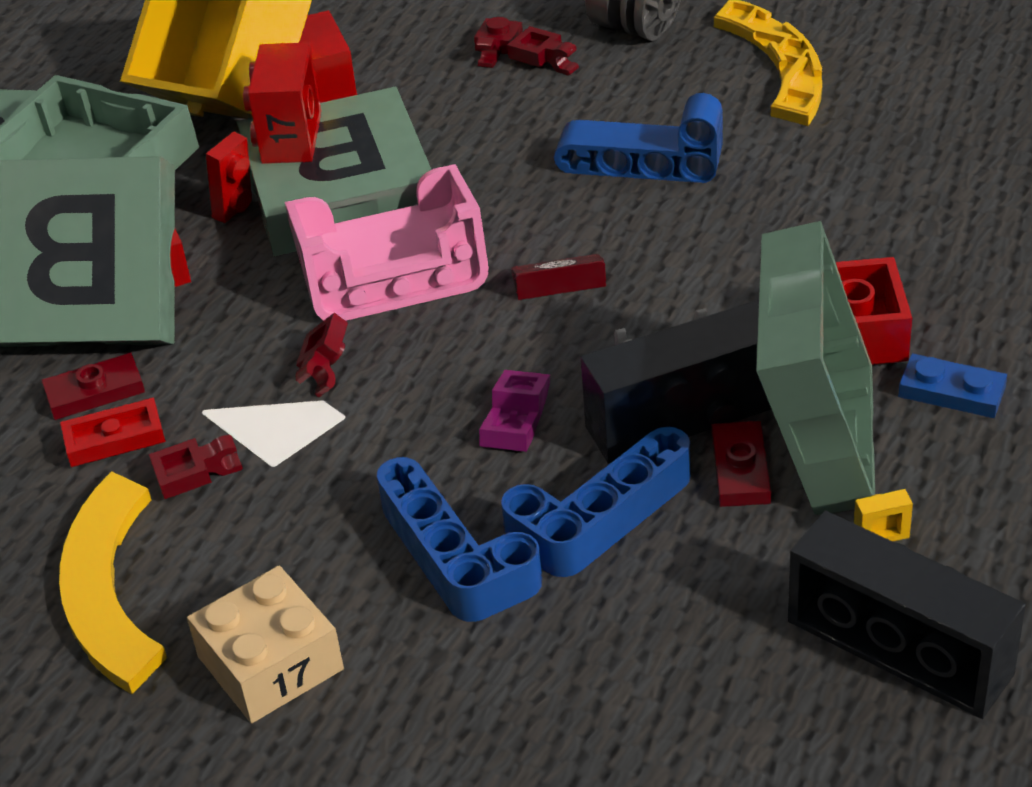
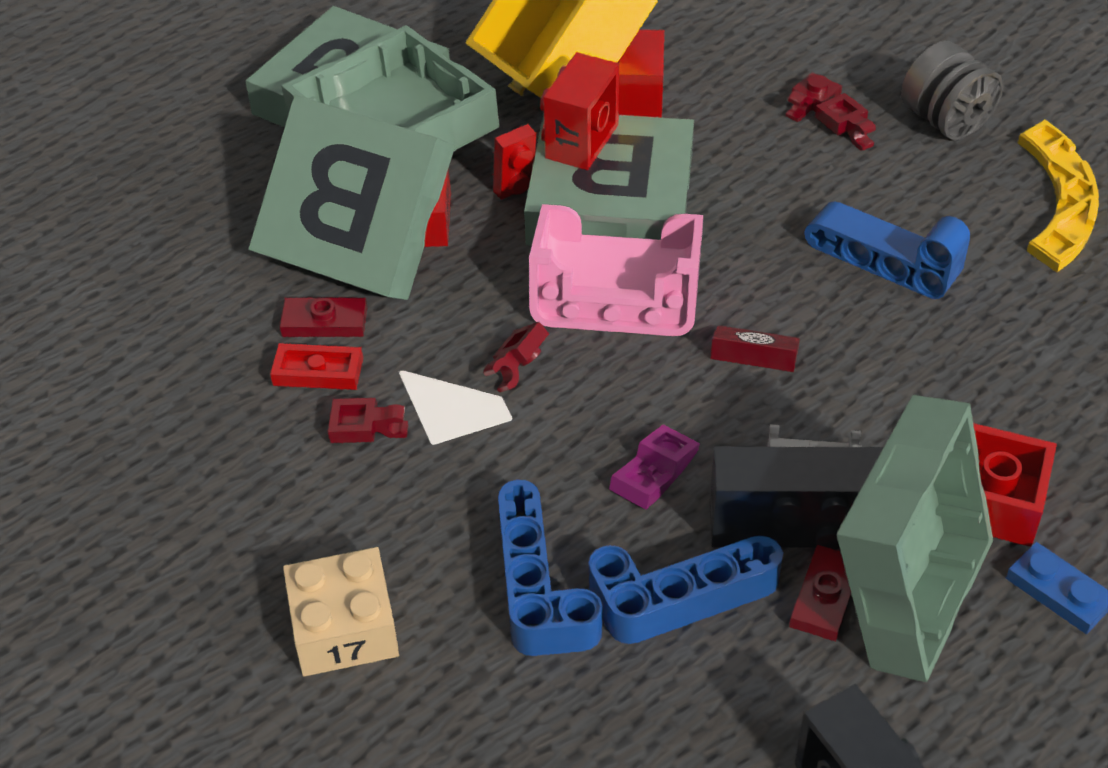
camera: 20 degrees right, 5 degrees up
(89, 590) = (236, 498): yellow tile -> none
(885, 514) = (924, 699): yellow plate -> none

